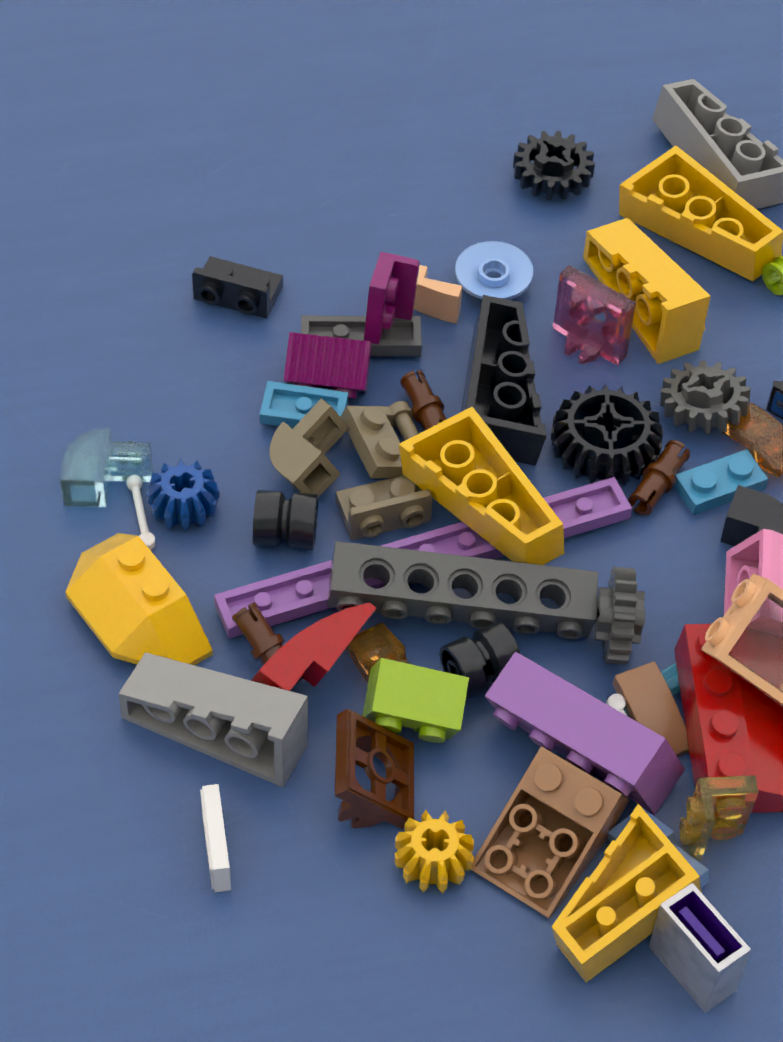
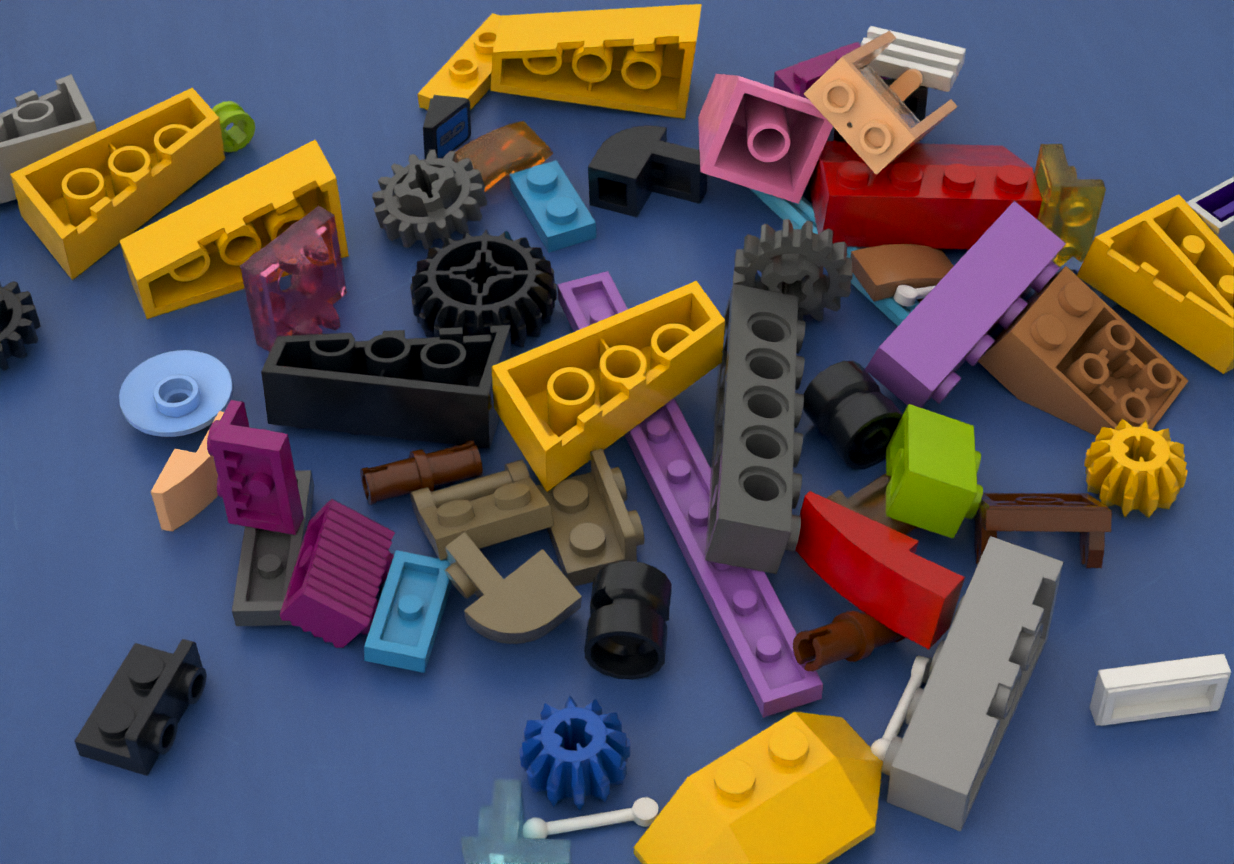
camera: 85 degrees left, 5 degrees down
(659, 477) = (563, 255): reddish brown pin -> none

